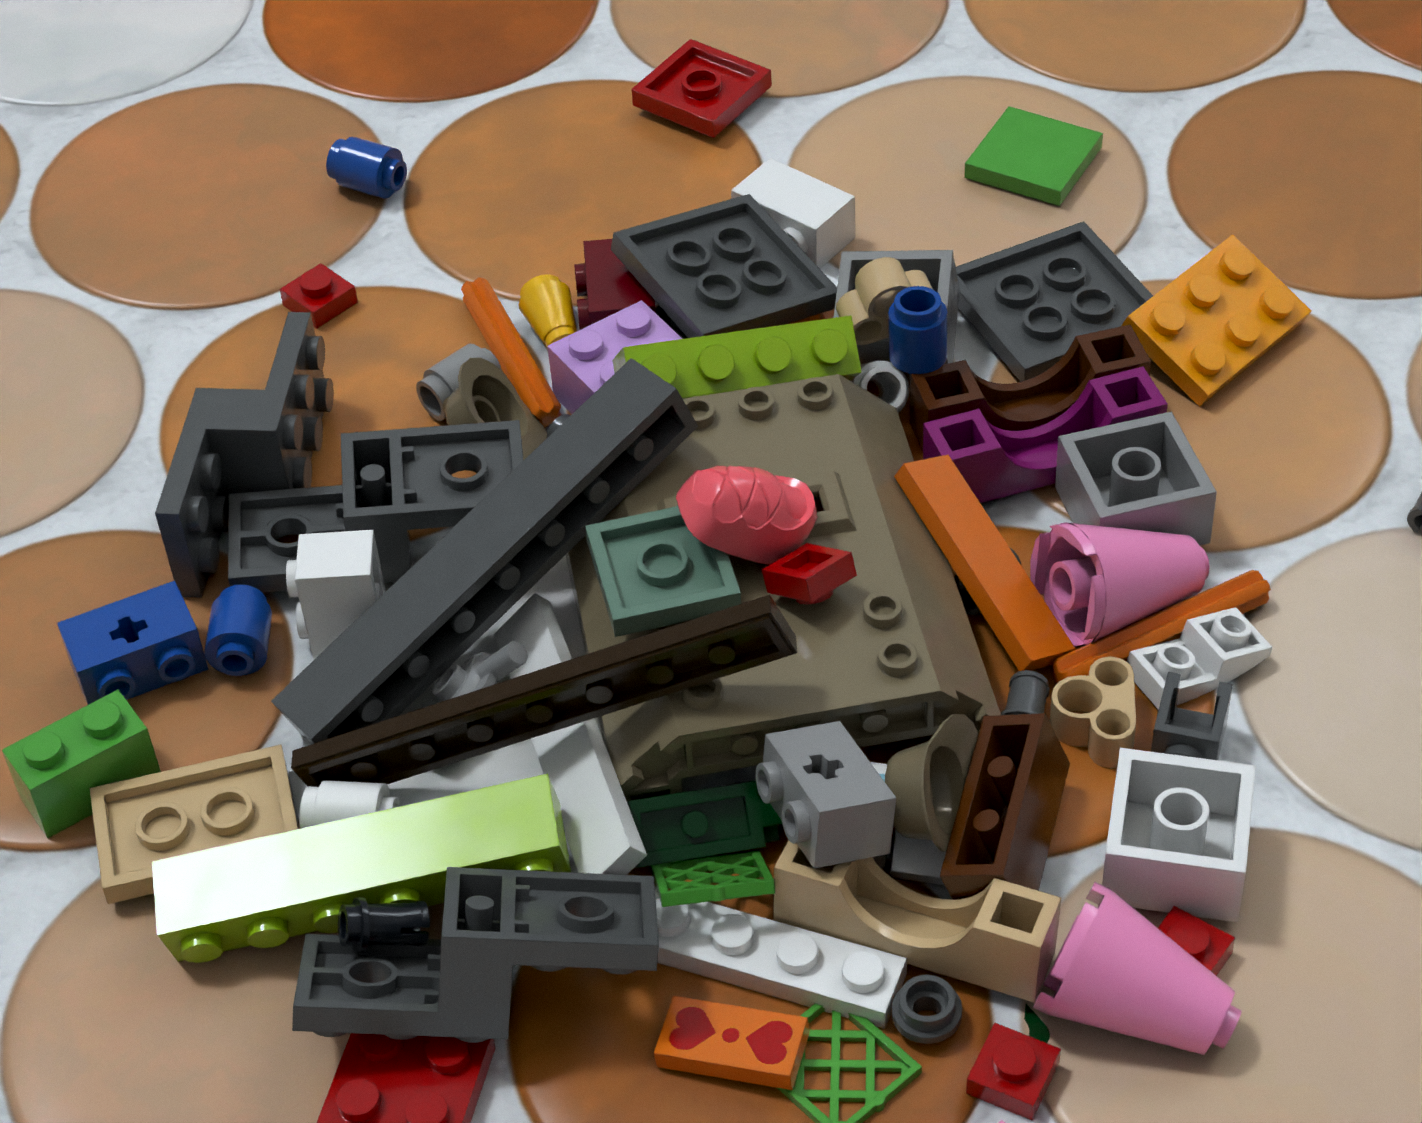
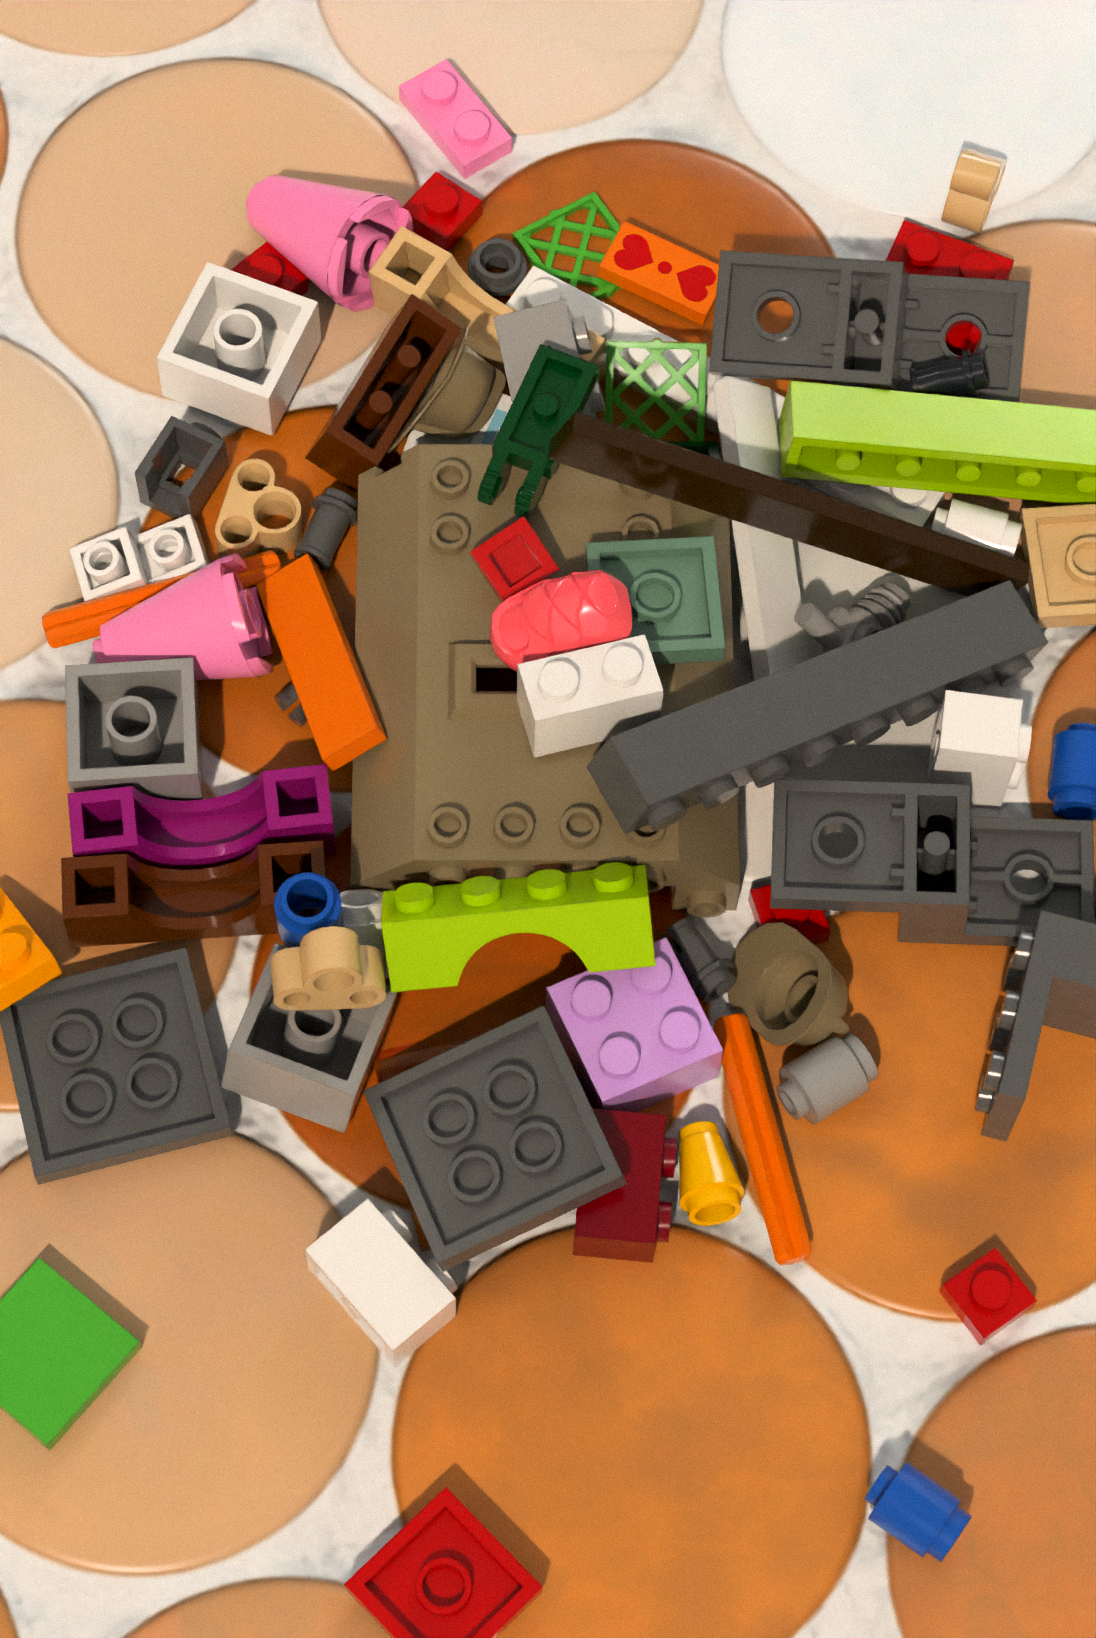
camera: 175 degrees left, 20 degrees up
(720, 438) = (588, 694): none -> white brick
(813, 689) = (547, 398): none -> dark green hinge

